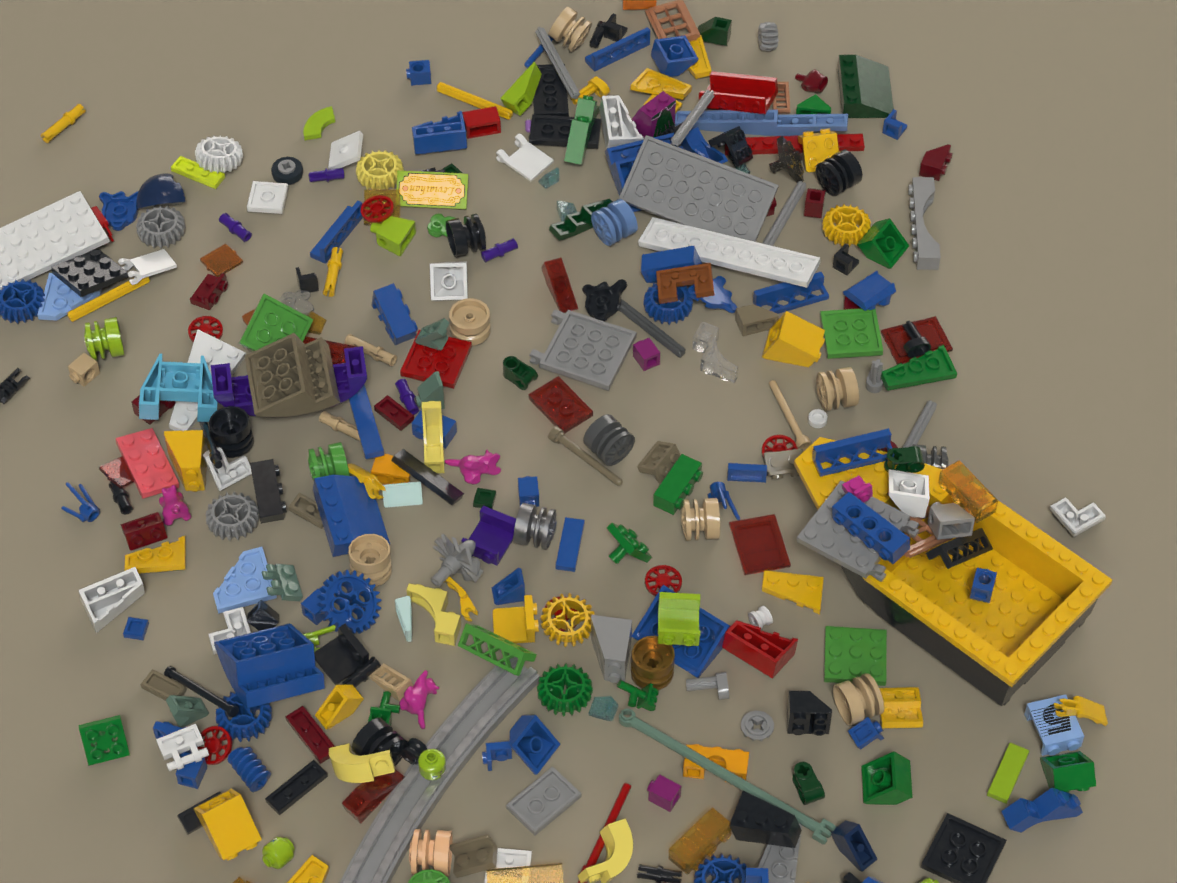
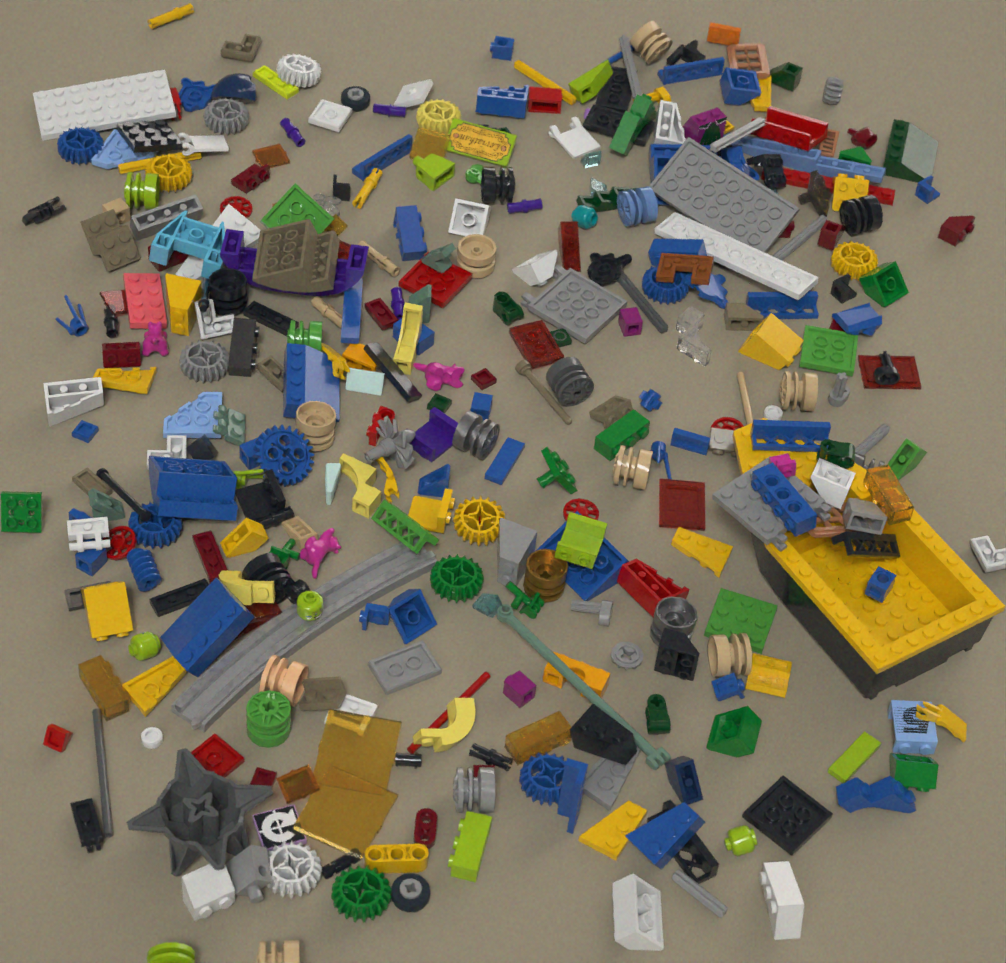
camera: 10 degrees right, 5 degrees down
(89, 404) = (110, 240): none -> dark tan bracket
(131, 300) = (172, 170): none -> yellow gear
(138, 362) = (154, 220): none -> light grey brick
(153, 145) = (241, 51): none -> dark tan brick
(282, 447) = (269, 317): none -> black tile
(317, 122) = (396, 68): lime tile -> none
(335, 817) = (206, 628): none -> blue slope
(377, 209) = (424, 145): red wheel -> none
(431, 533) = (371, 431): none -> red plate
(519, 458) = (483, 379): none -> dark red tile
(534, 318) = (537, 269): none -> white slope
(564, 247) = (585, 216): none -> teal head
(583, 389) = (561, 337): none -> dark green tile
(655, 82) = (712, 100): yellow wing -> none
(694, 437) = (650, 399): none -> blue gear
(760, 617) = (662, 564): white wheel -> none
(792, 673) = (673, 614): none -> flat silver wheel
(926, 248) = (924, 297): light grey arch -> none
(929, 368) = (889, 397): green wing -> none
(962, 434) = (906, 458): none -> bright green slope

